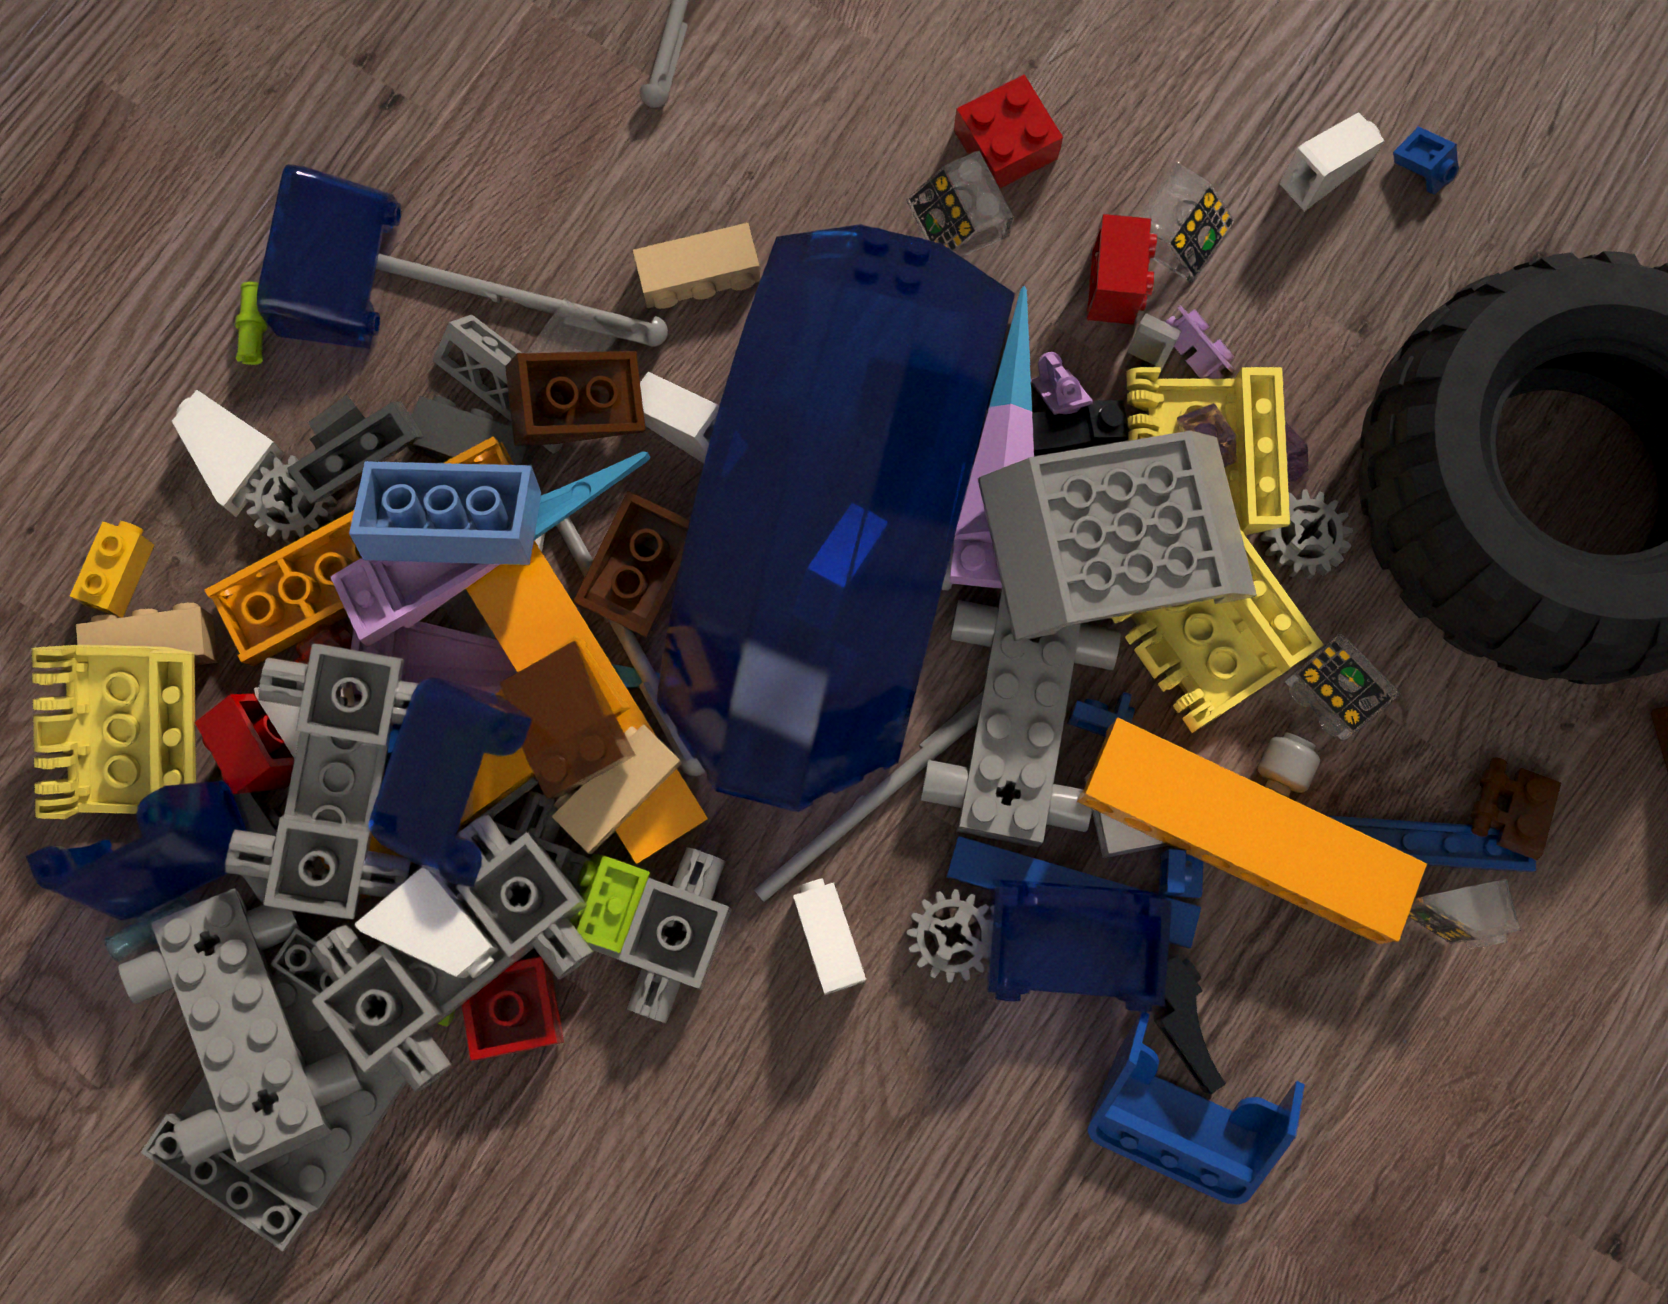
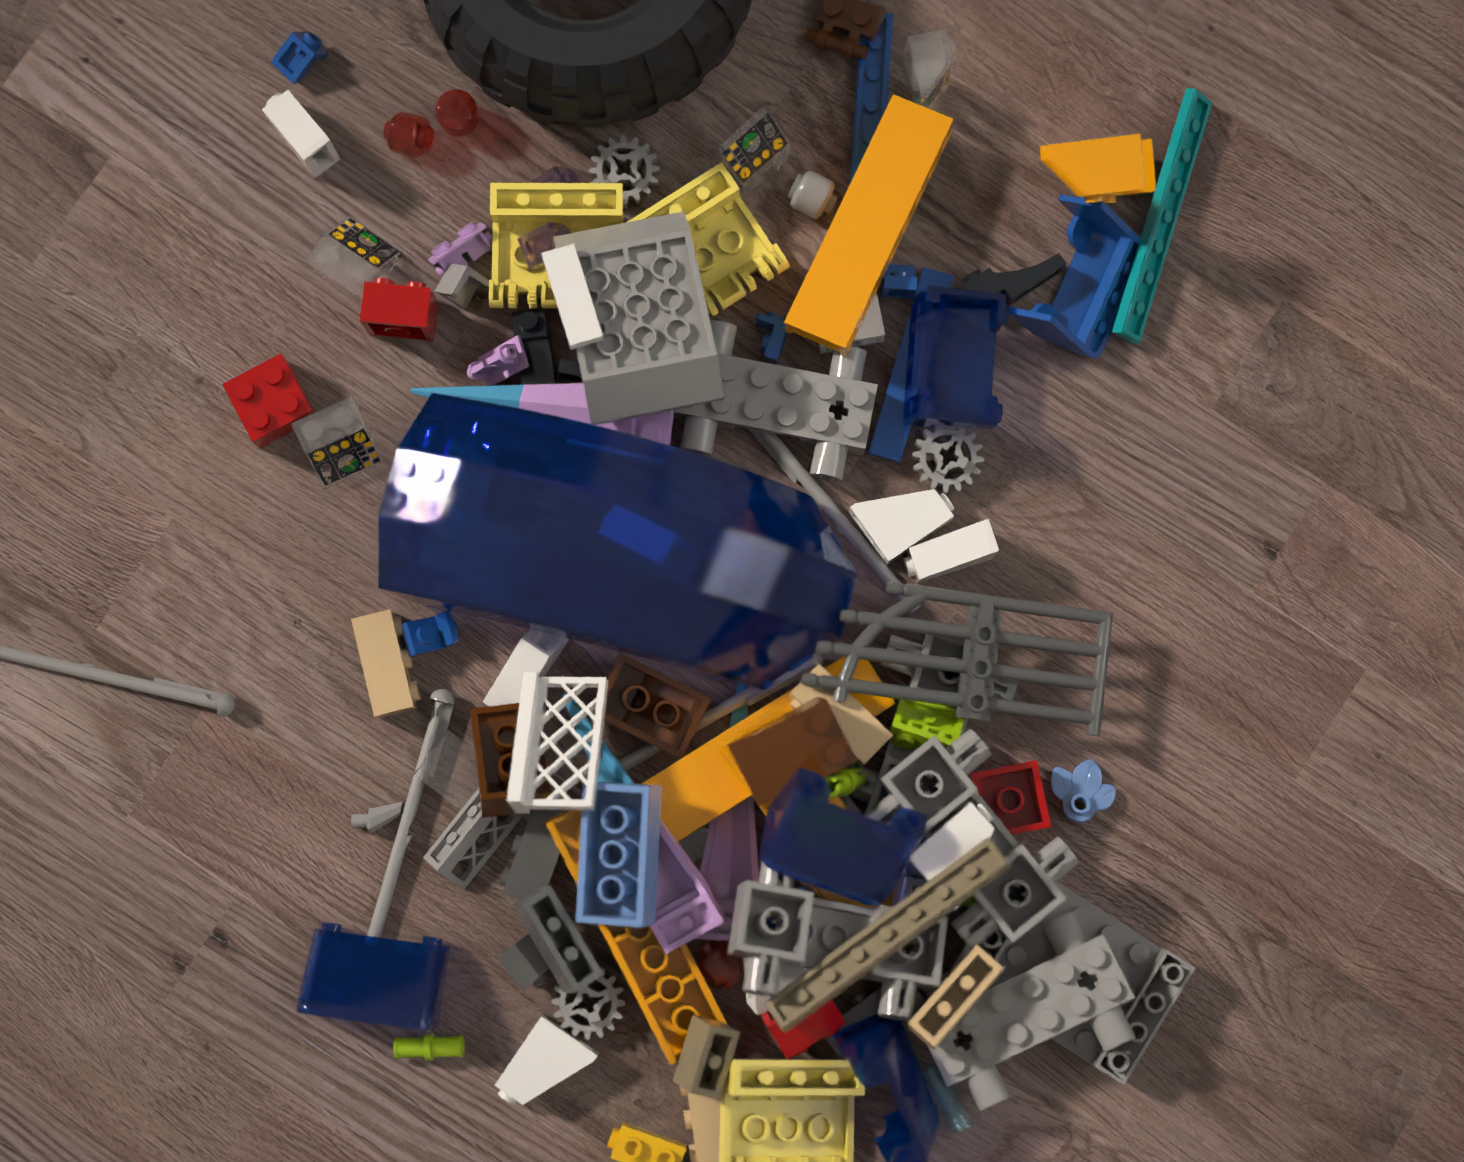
camera: 90 degrees left, 5 degrees up
(203, 625) = (706, 1057): none -> dark tan brick
(251, 928) = (955, 997): none -> tan brick
(329, 841) = (887, 934): none -> dark tan tile
(520, 263) = (377, 817): none -> light grey bar
(526, 788) = (845, 781): none -> lime pin
(530, 1110) = (1084, 786): none -> medium blue plate
(582, 406) = (529, 748): none -> white fence
(689, 967) = (979, 656): none -> dark grey piece
(728, 311) = (430, 634): none -> blue bracket
(870, 877) = (901, 520): none -> white slope
(1137, 445) = (572, 296): none -> white tile
(1285, 1229) = (1162, 216): none -> teal tile
(1338, 282) = (409, 134): none -> clear red head
(1343, 1140) = (1103, 166): none -> light orange windscreen
(1368, 335) = (457, 112): none -> clear red head

